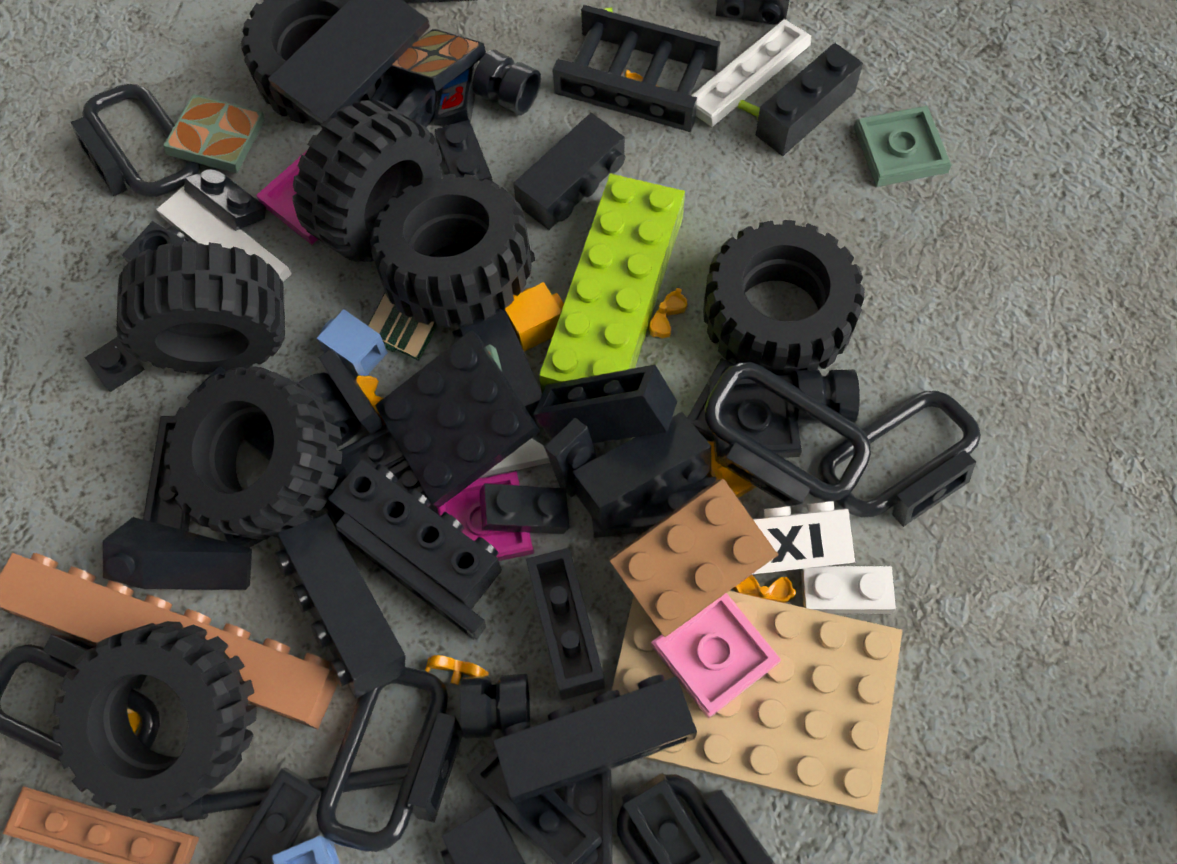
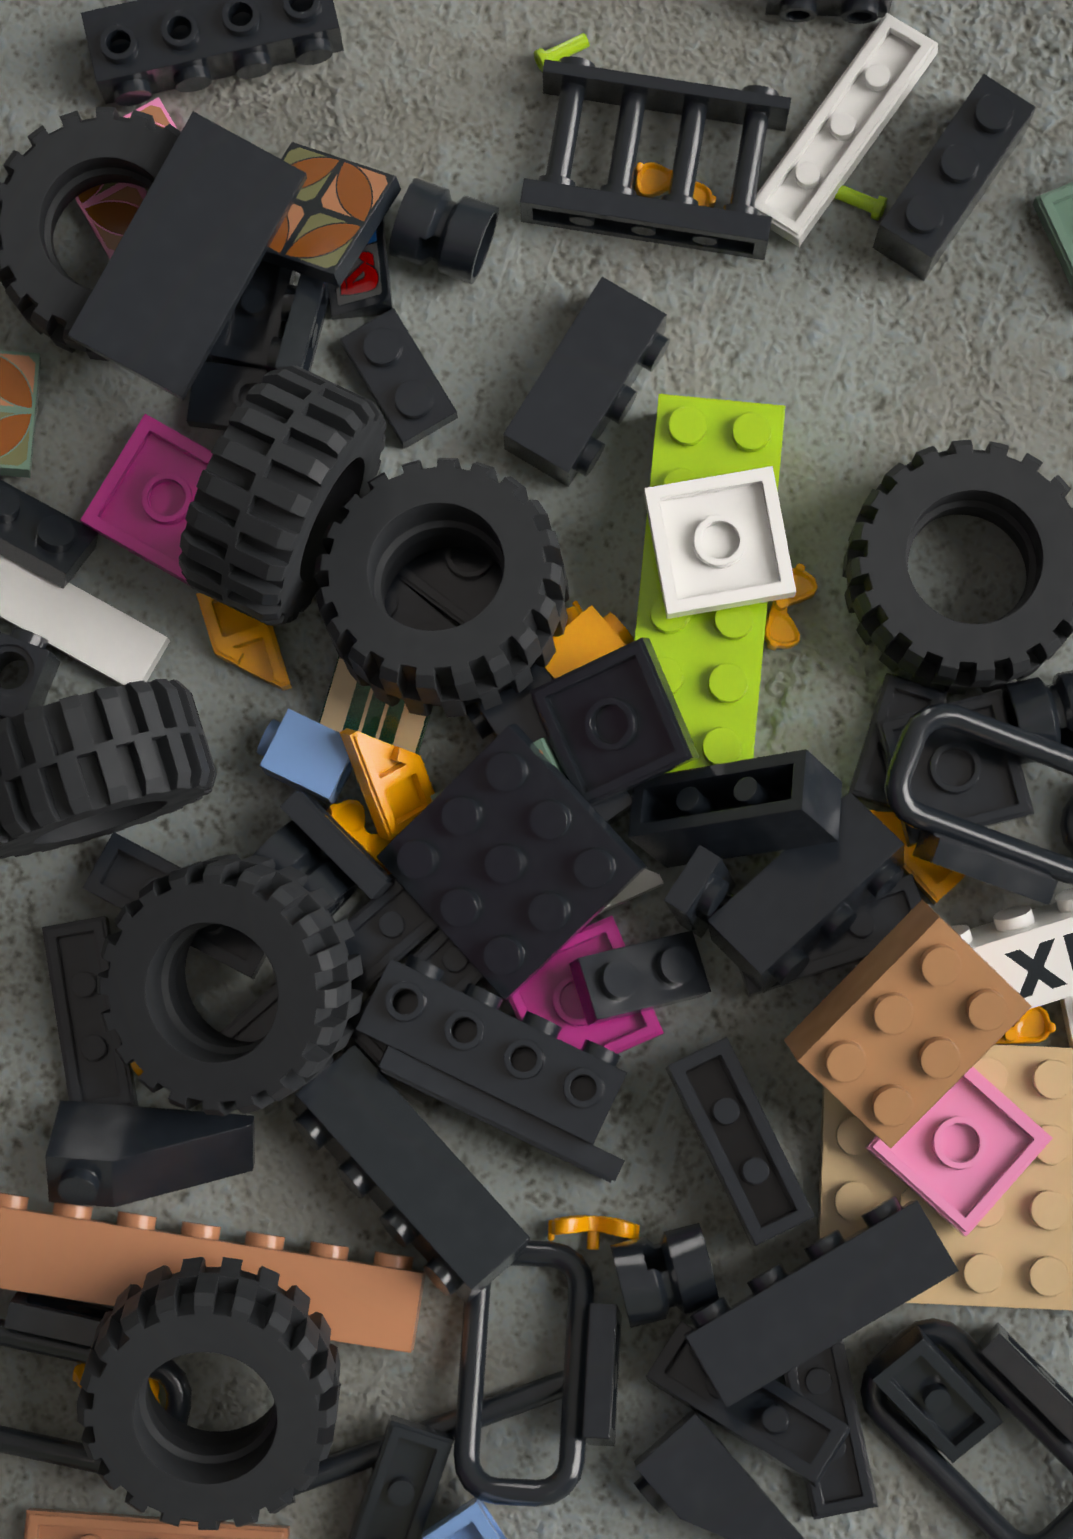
camera: 10 degrees left, 15 degrees up
(334, 276) = (244, 642): none -> light orange tile
(394, 359) = (390, 780): none -> light orange tile
(539, 343) = (614, 722): none -> black tile
(627, 249) = (719, 542): none -> white plate

